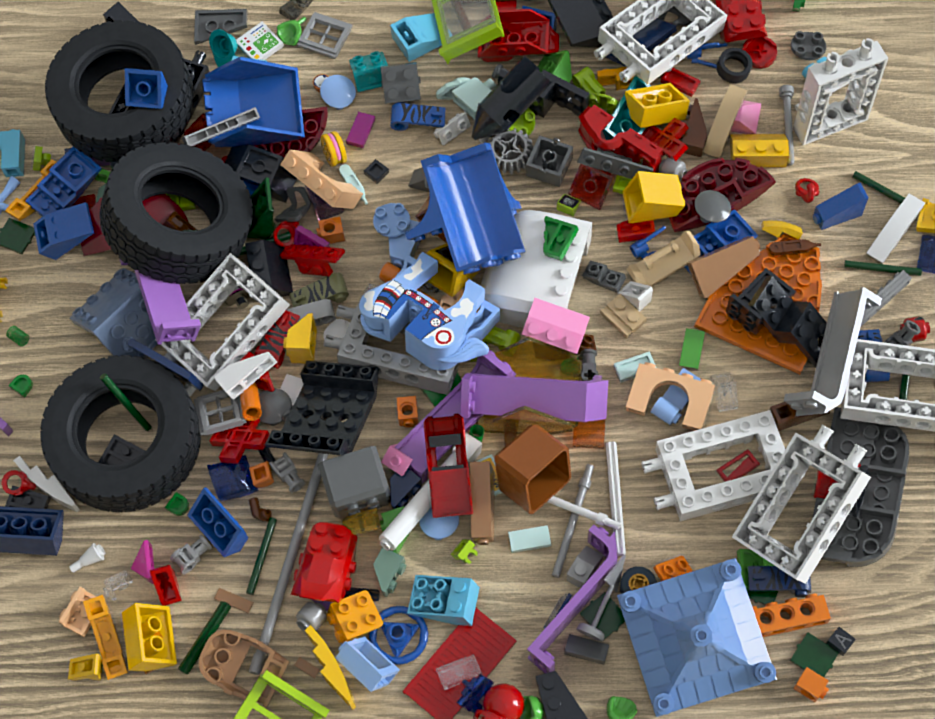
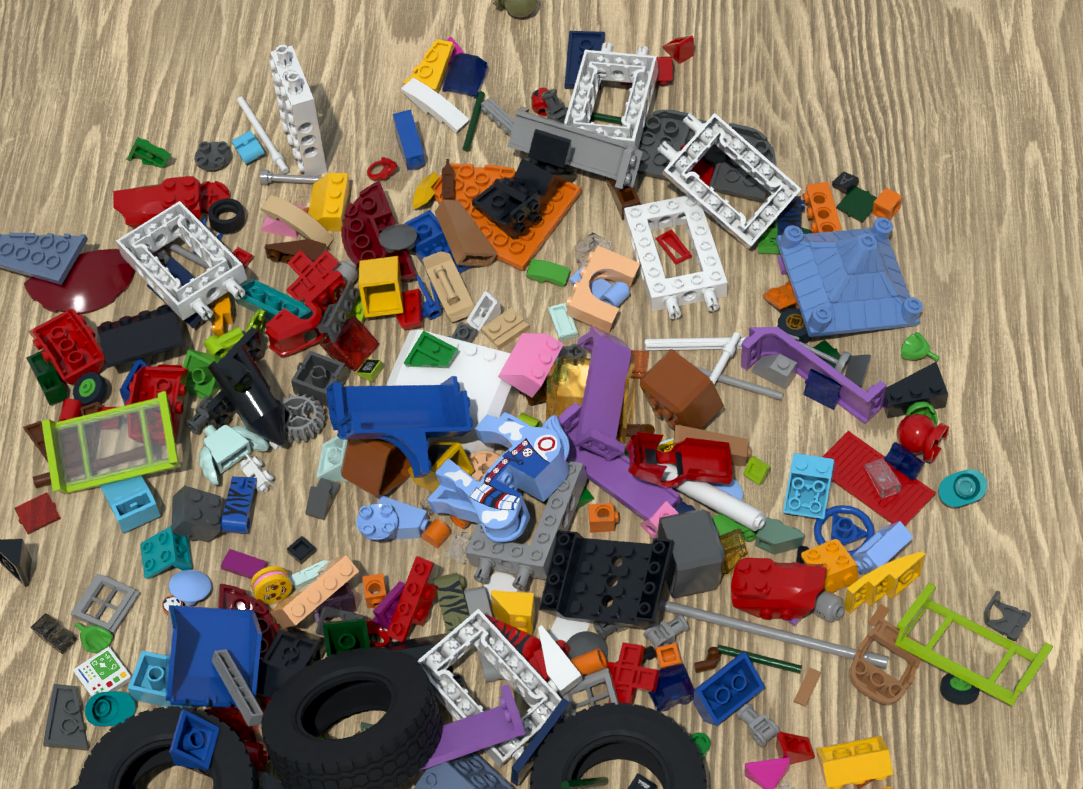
camera: 90 degrees left, 10 degrees down
(210, 628) = (850, 711): dark green axle -> none
(529, 539) = (744, 416): light aqua tile -> none
(656, 105) = (268, 278): yellow slope -> none
(820, 327) = (550, 148): none -> black slope
(878, 187) = (386, 115): dark green piece -> none

